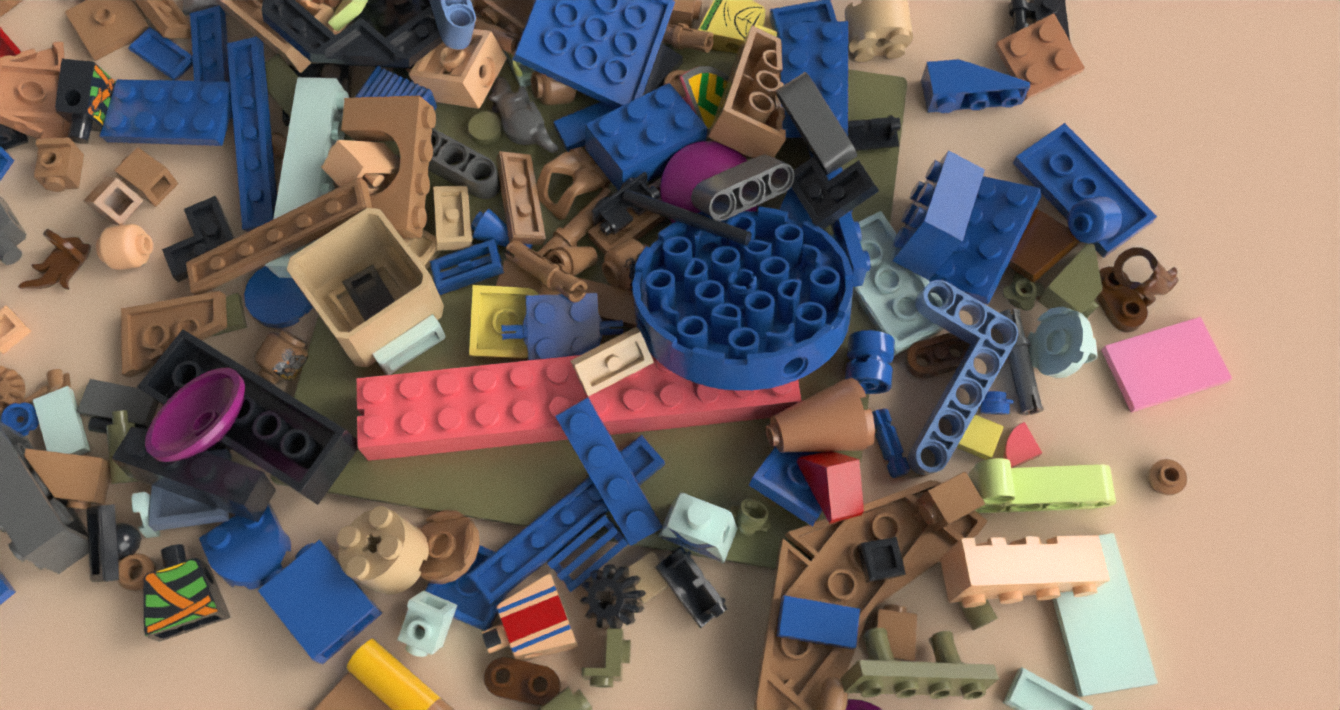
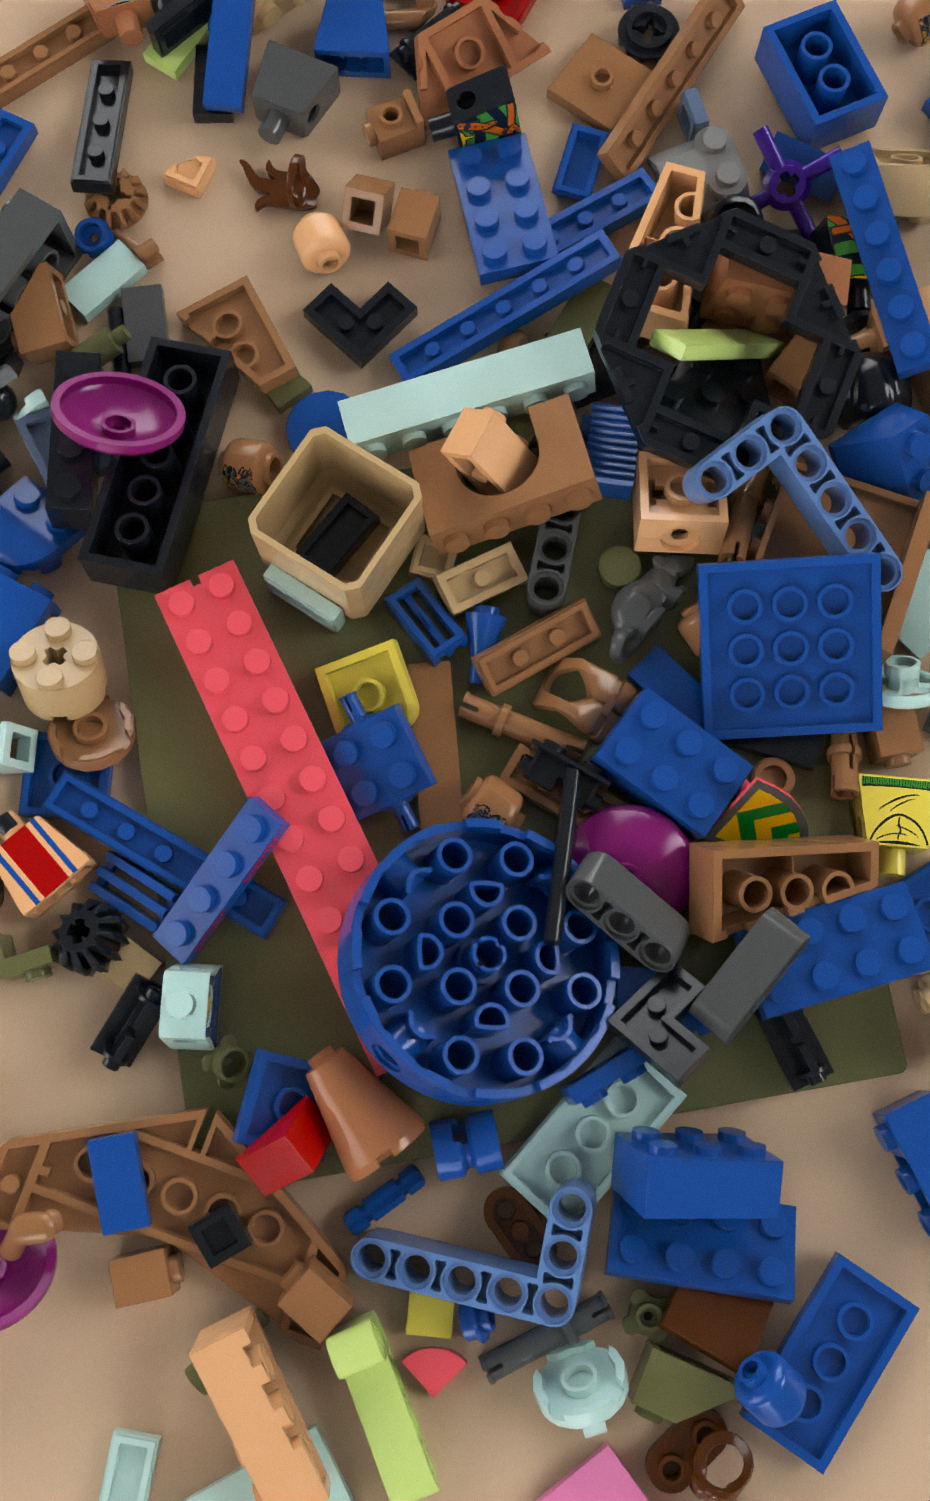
camera: 70 degrees right, 10 degrees up
(277, 237) = (372, 403): medium nougat tile -> none
(552, 275) = (433, 726): medium nougat pin -> none
(574, 258) = (471, 738): medium nougat cone -> none
(612, 361) = (336, 836): tan plate -> none
(906, 679) = (113, 1354): olive plate -> none

